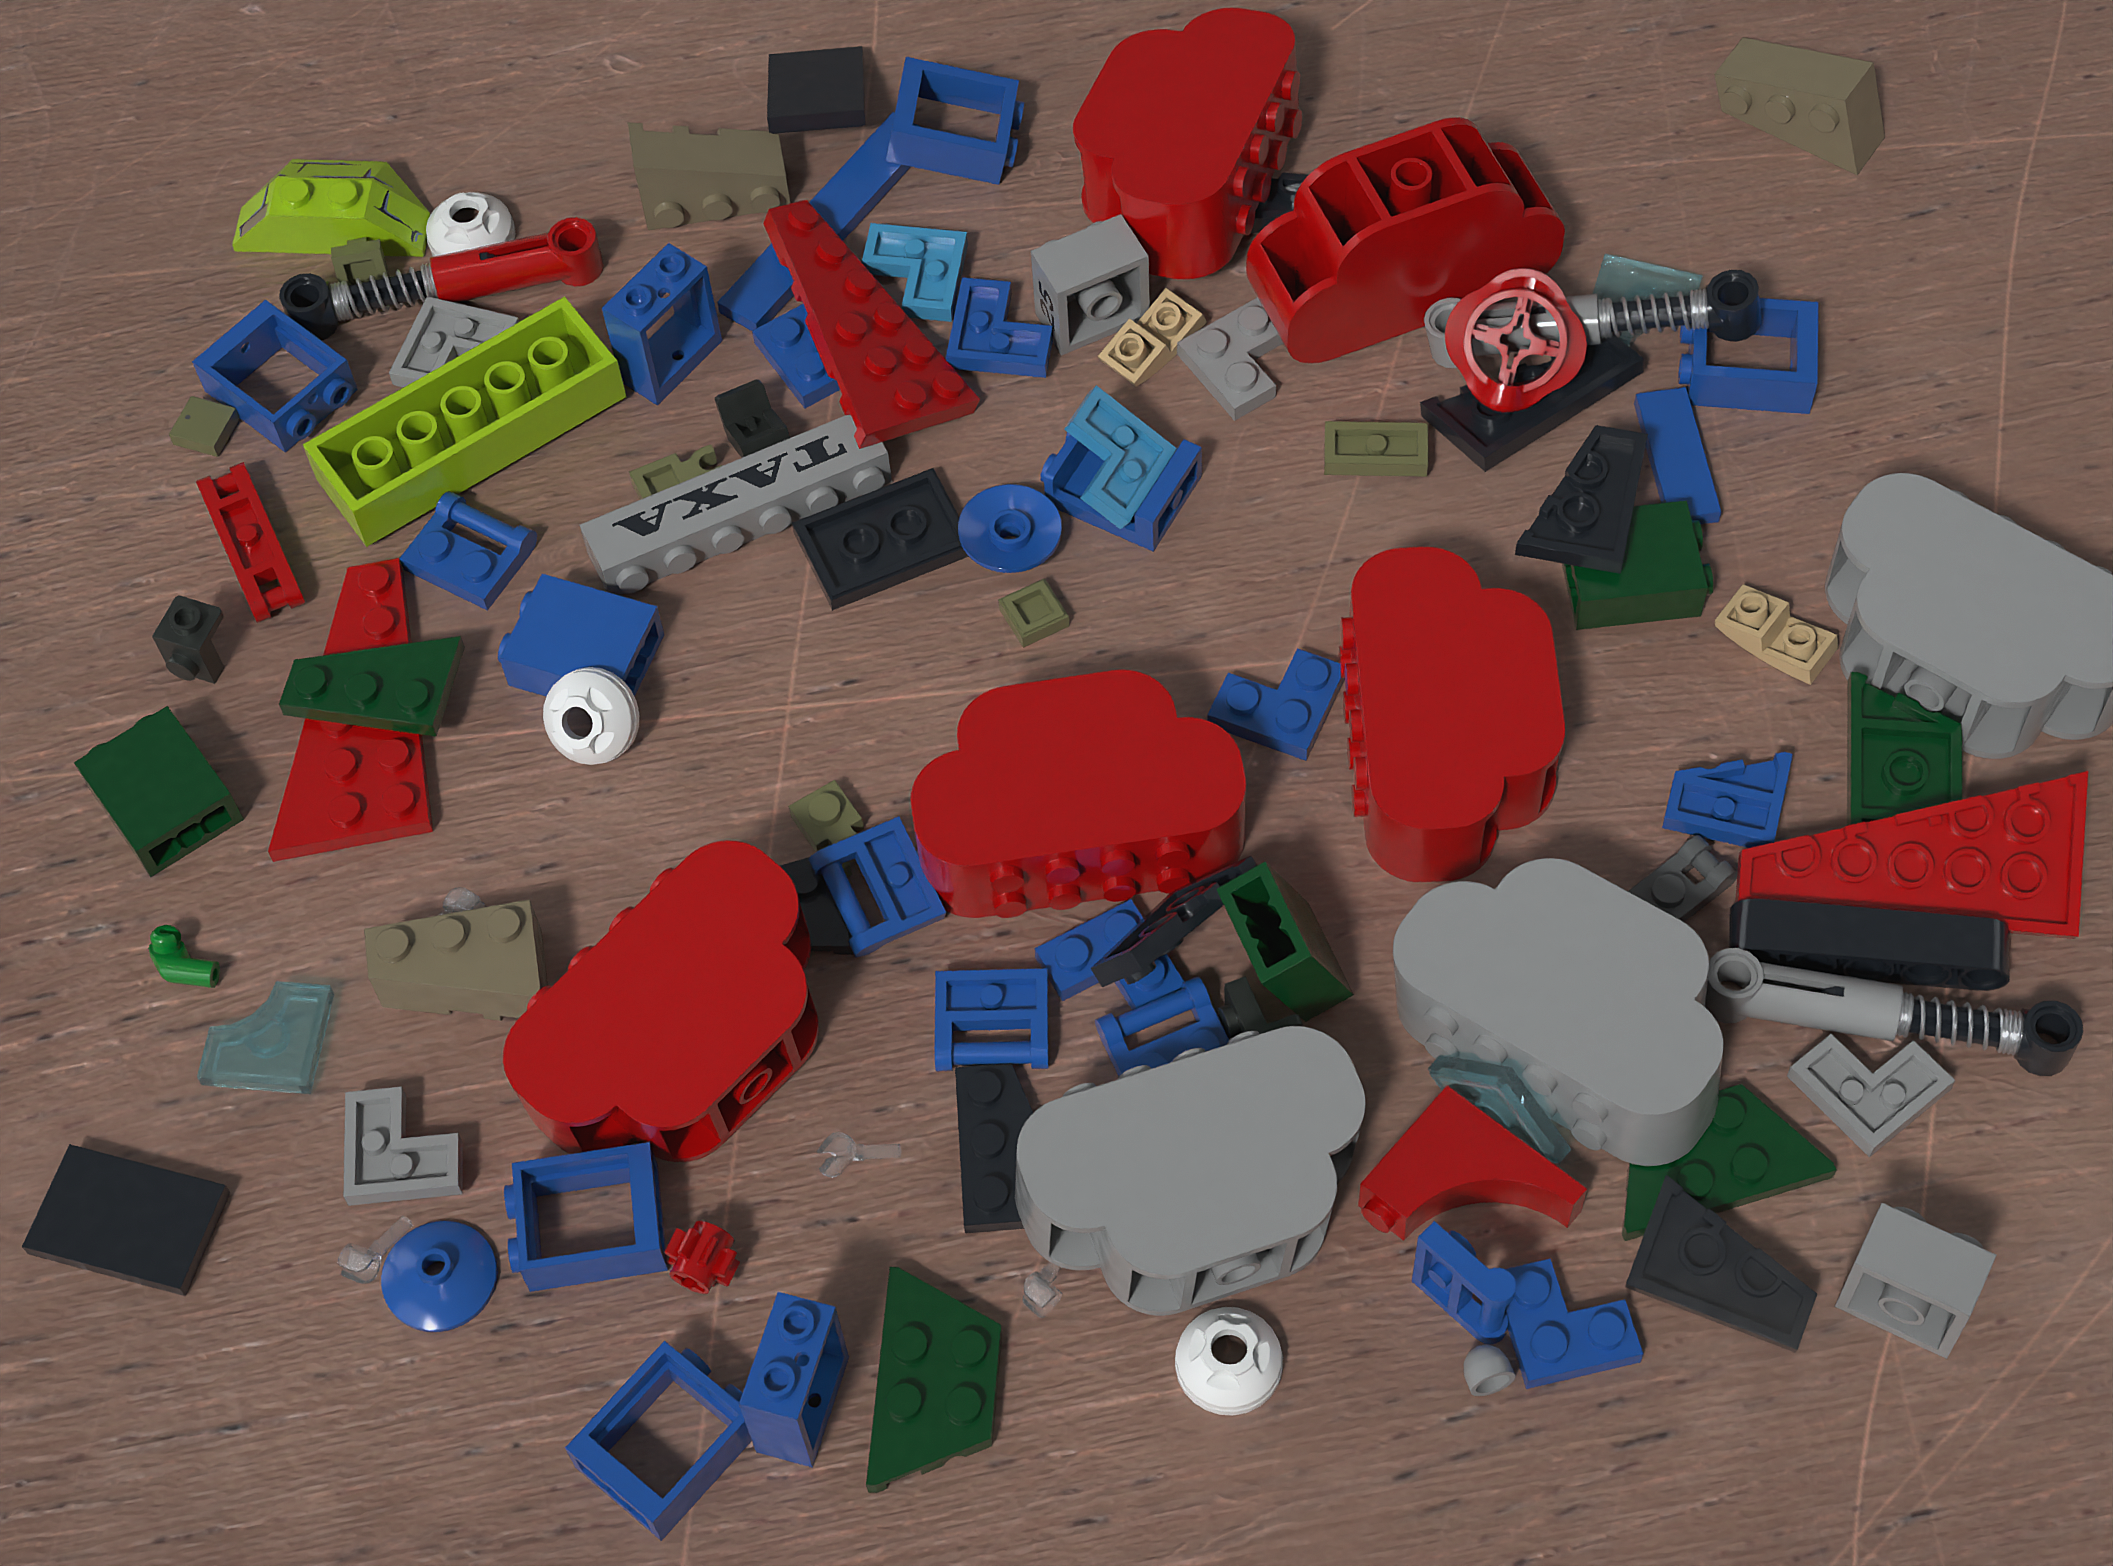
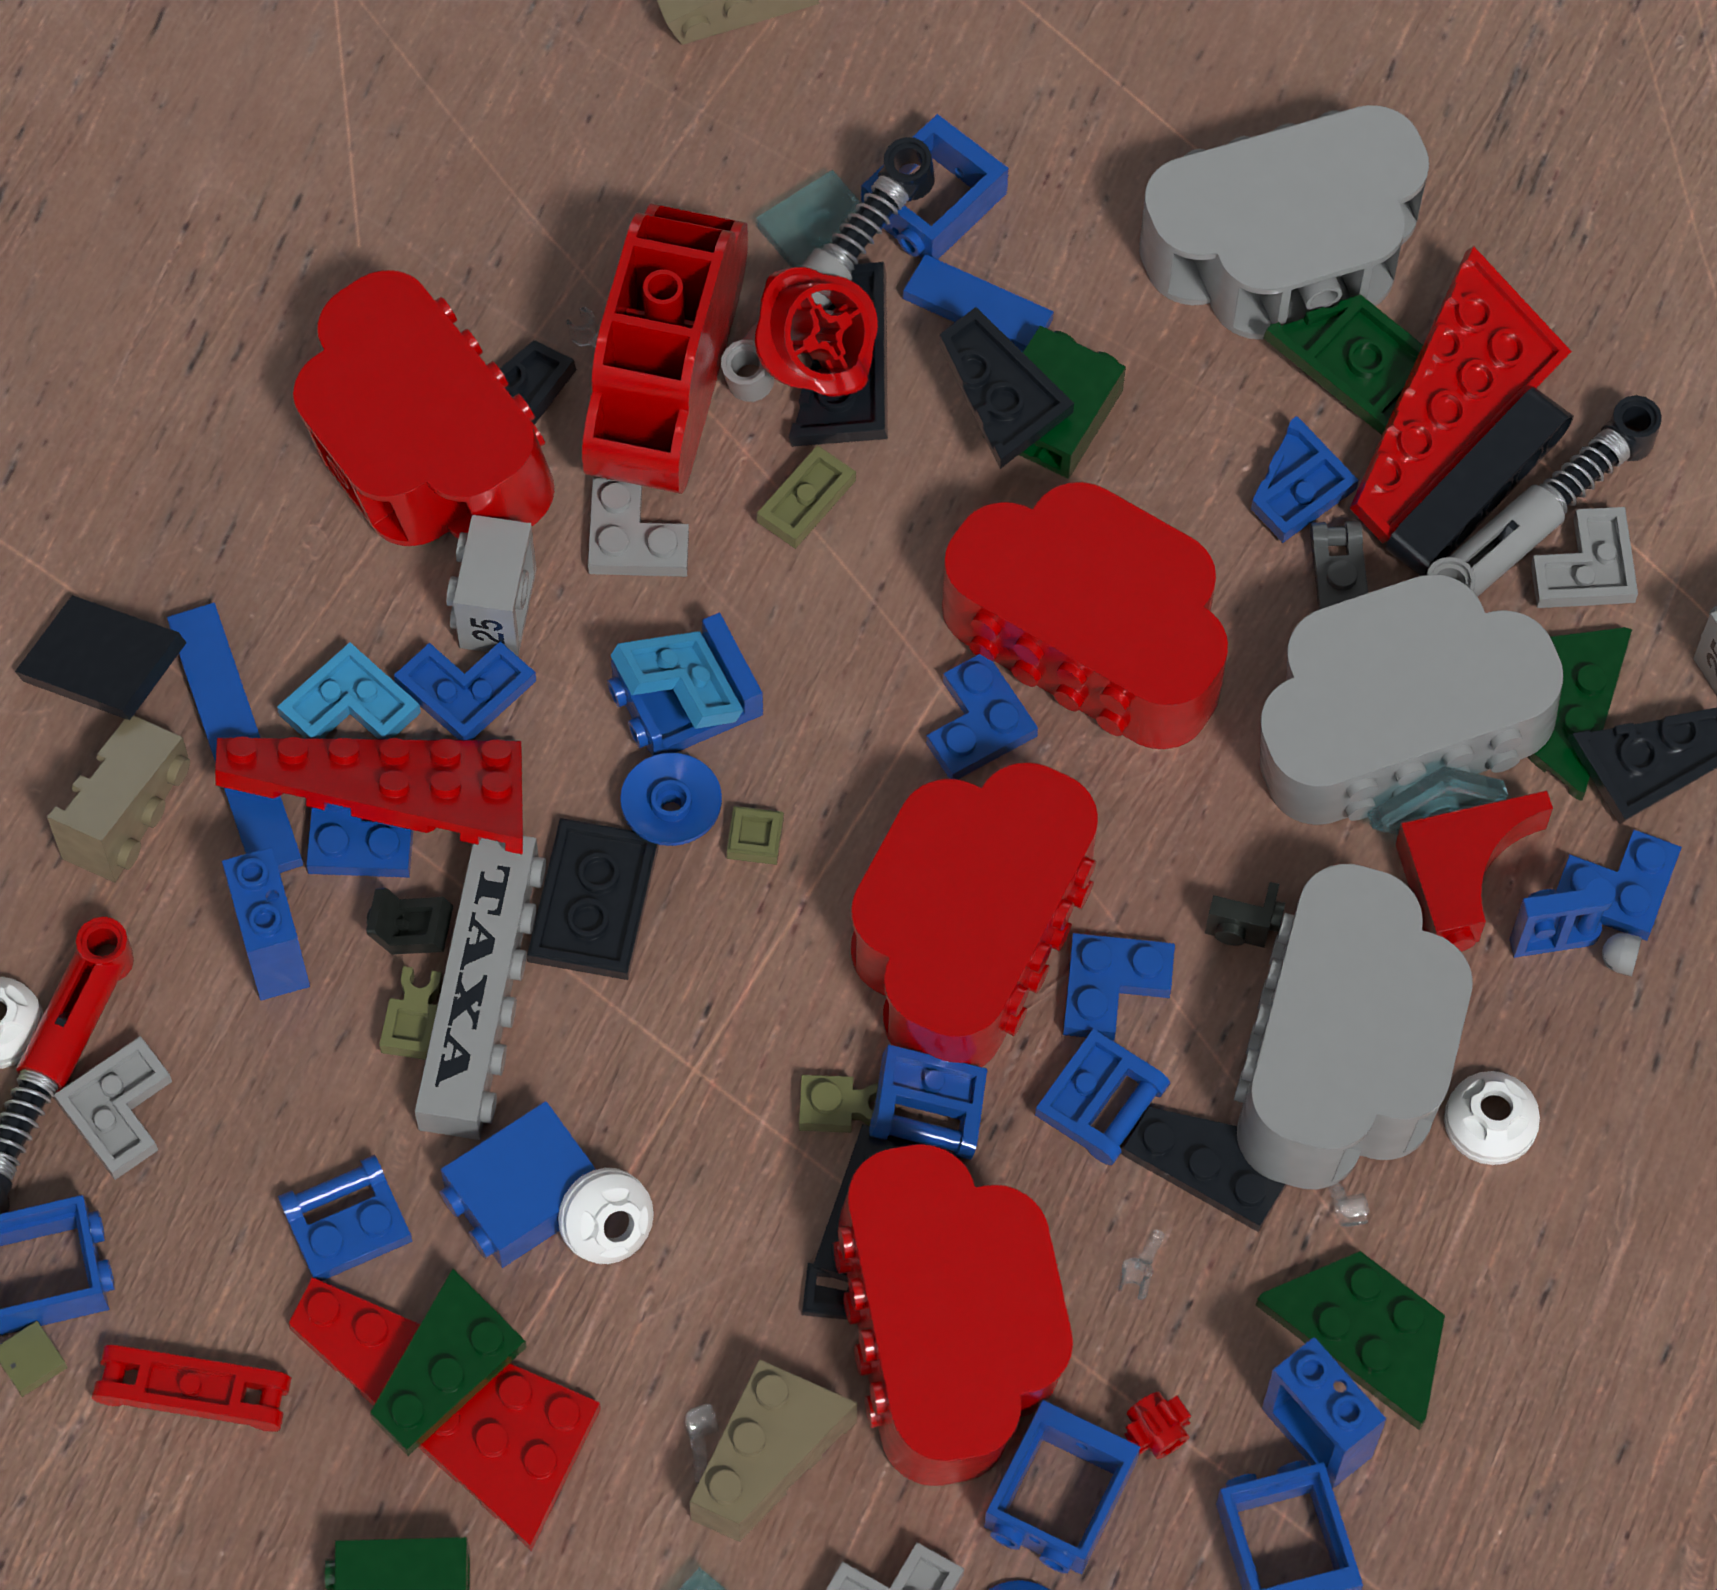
camera: 60 degrees left, 5 degrees up
(186, 639) = (272, 1486): pearl dark grey bracket -> none
(465, 420) = (223, 1140): lime brick -> none
(948, 151) = (199, 610): blue window -> none
(1151, 343) = (565, 579): tan slope -> none
(1166, 926) = (1135, 911): black wing -> none
(1204, 1034) = (1230, 991): blue plate -> none
(1284, 942) = (1212, 847): dark green brick -> none
(1769, 632) = (1183, 356): tan slope -> none

